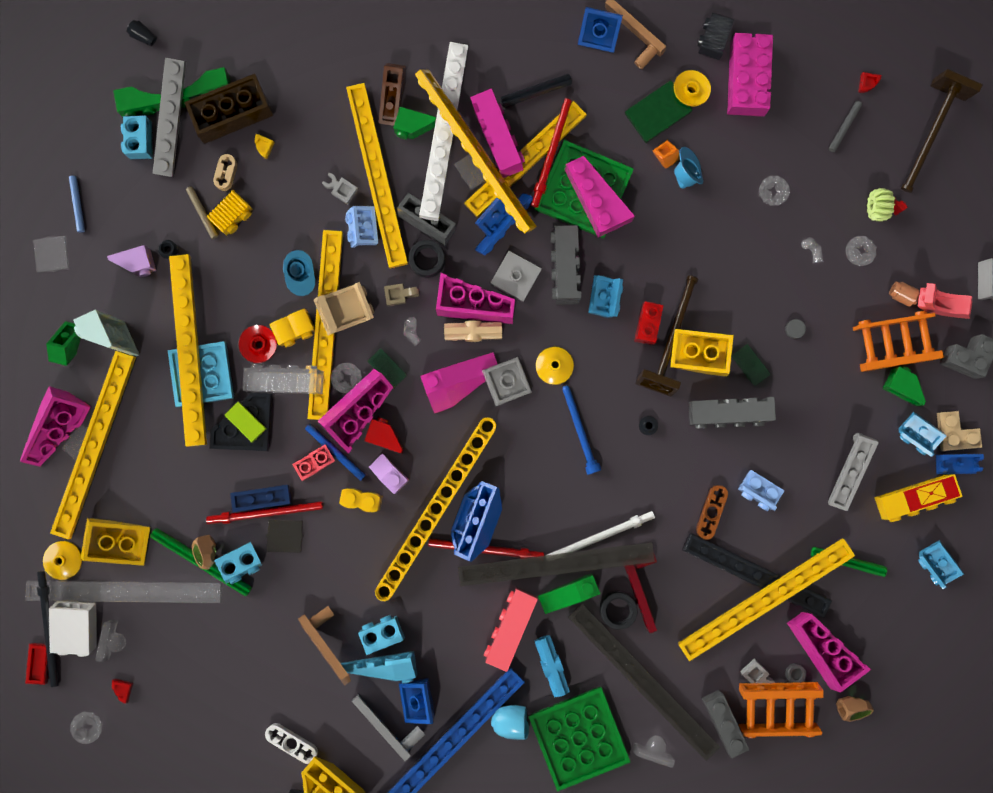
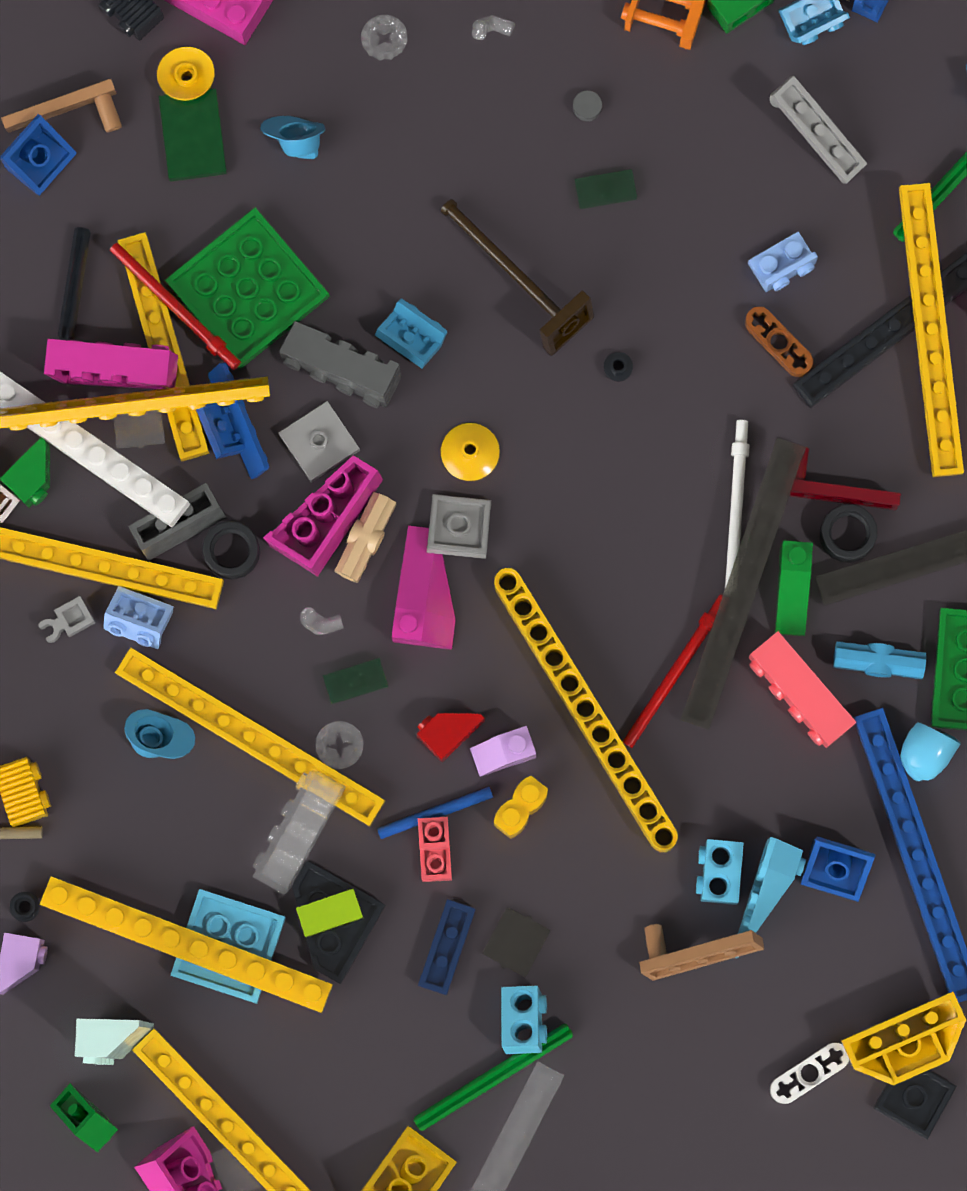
camera: 60 degrees left, 5 degrees down
(204, 551) = (481, 1061): medium nougat rock -> none
(228, 517) = (449, 1008): red bar -> none
(249, 340) = (214, 835): red dish -> none
(292, 328) = (231, 783): yellow brick -> none
(344, 308) = (242, 696): tan panel -> none
(356, 409) = (391, 750): dark pink wedge -> none
(397, 294) = (259, 615): dark tan plate -> none
(402, 747) = (889, 921): light grey piece -> none
(476, 521) = (628, 662): blue wedge -> none
(592, 465) = (633, 468): blue piece -> none
(597, 198) = (274, 275): dark pink wedge -> none
(648, 323) = (478, 295): red brick -> none
(667, 154) = (257, 153): orange slope -> none
(702, 352) = (555, 243): yellow slope -> none
(732, 412) = (656, 246): dark grey wedge -> none
(918, 497) = (895, 61): yellow brick -> none

